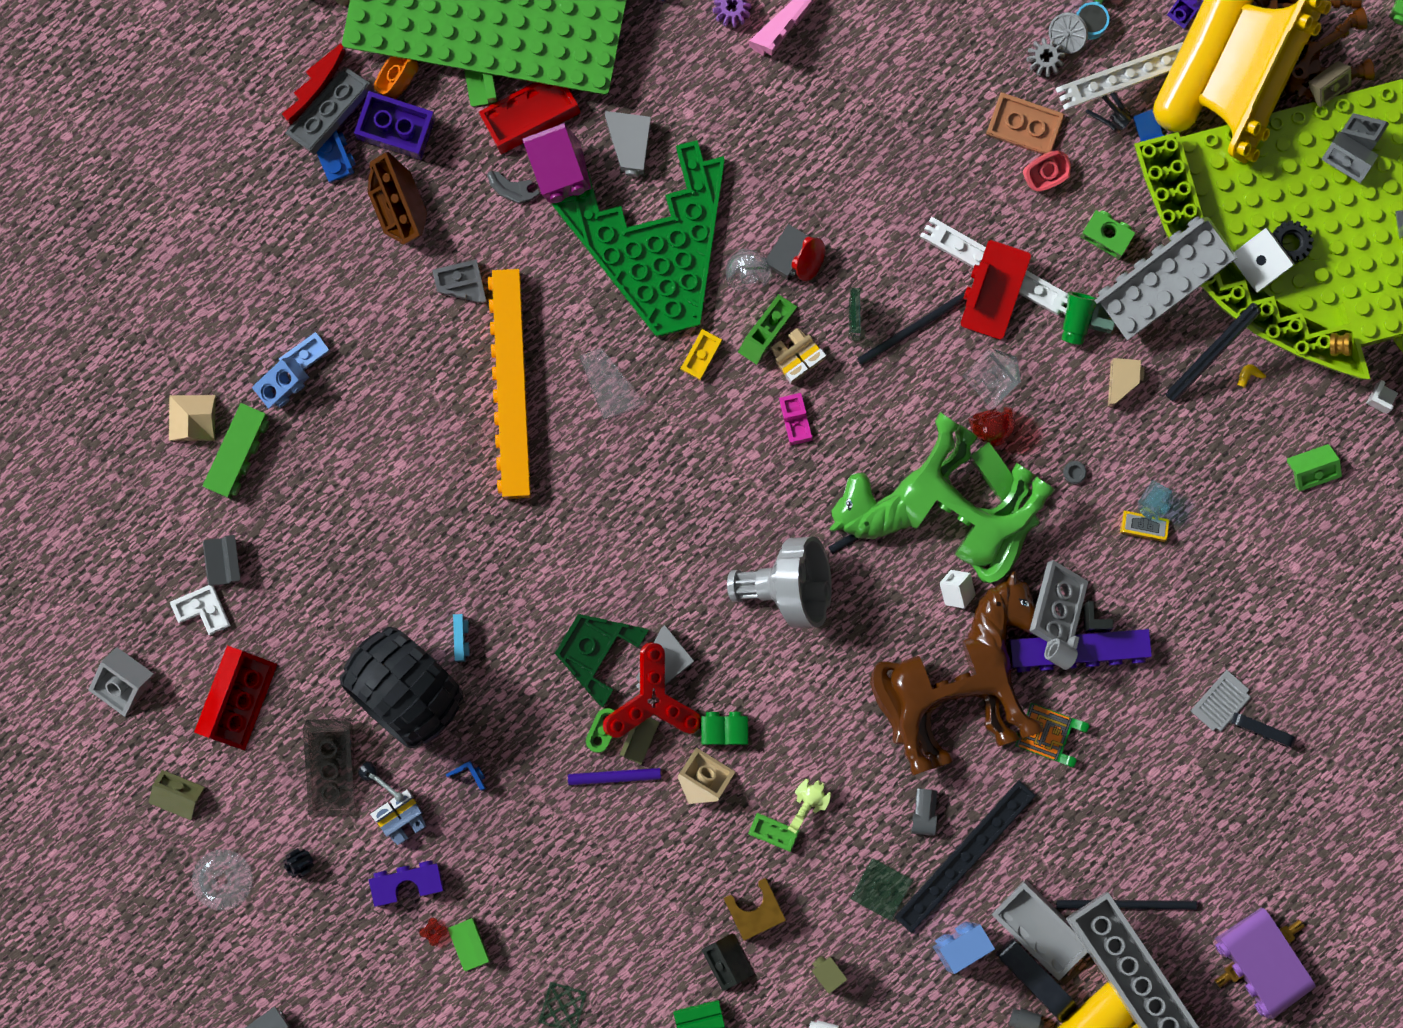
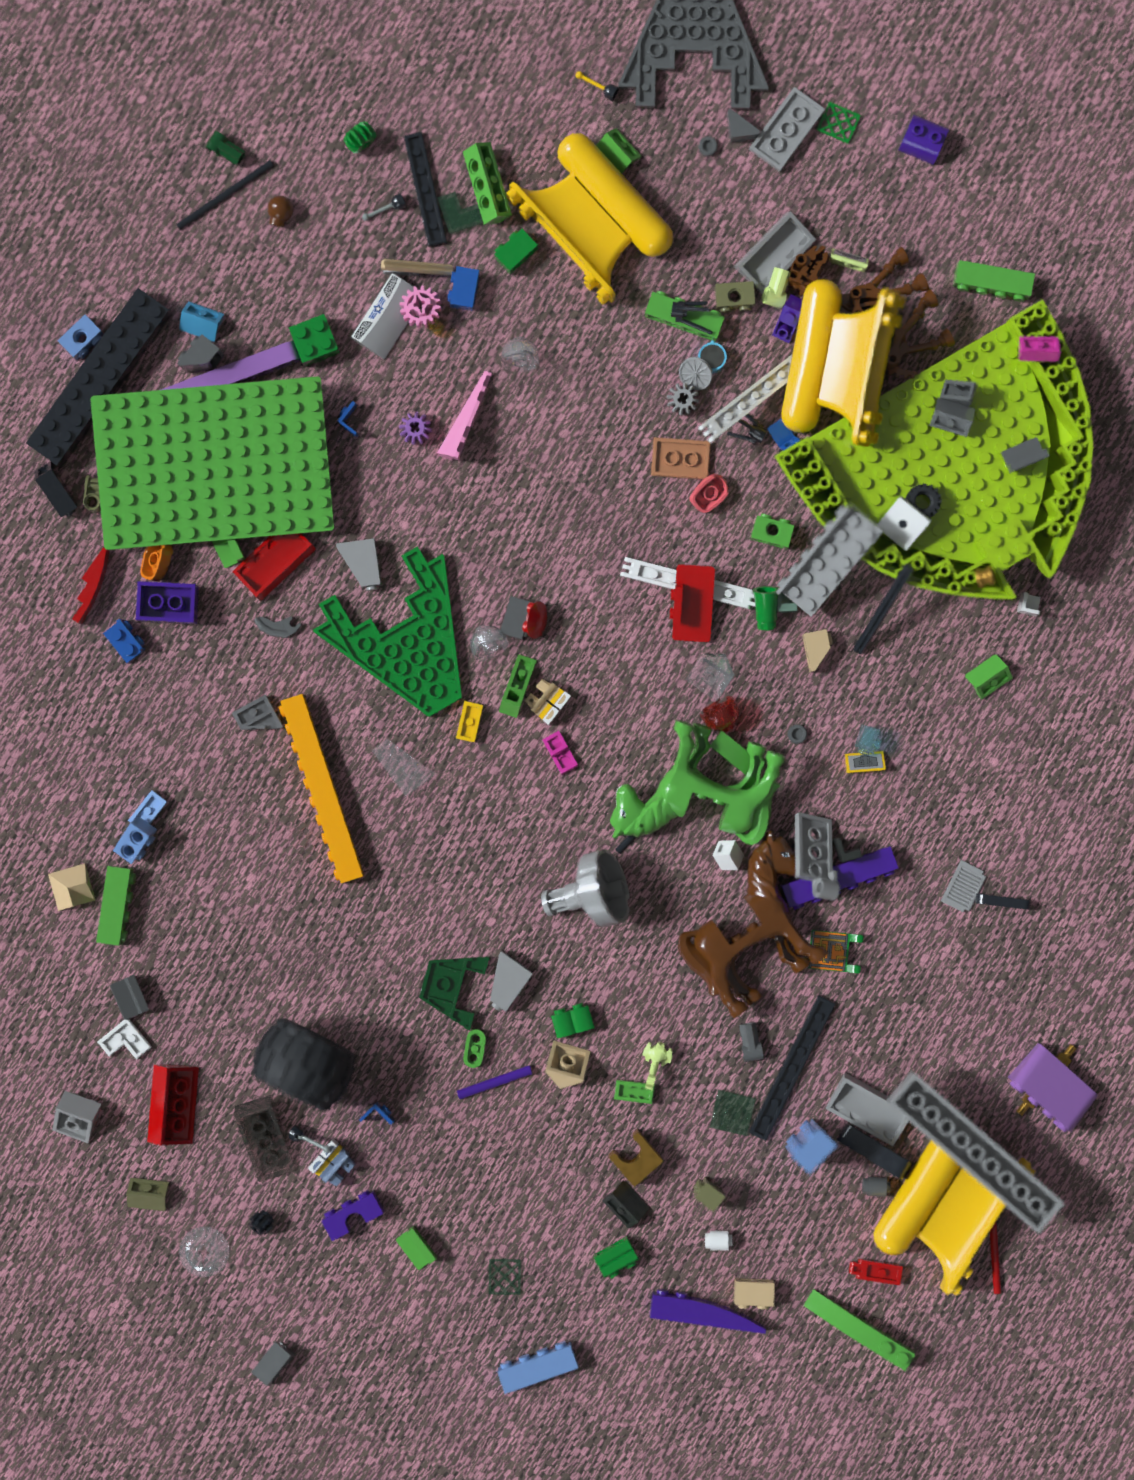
camera: 15 degrees left, 5 degrees up
(329, 110) = (110, 604): dark grey tile -> none
(396, 199) = (186, 663): reddish brown wedge -> none
(433, 938) = (384, 1241): clear red plate -> none
(461, 647) = (342, 1013): medium azure plate -> none
(558, 163) = (309, 598): magenta slope -> none
(638, 709) = (499, 1025): red piece -> none
(639, 741) = (506, 1046): olive panel -> none
(854, 314) = (584, 655): clear green tile -> none
(911, 329) = (633, 654): black piece -> none
(1134, 904) = (932, 1070): black piece -> none
(1246, 373) = (913, 616): yellow animal -> none
(1330, 82) = (920, 359): dark tan slope -> none

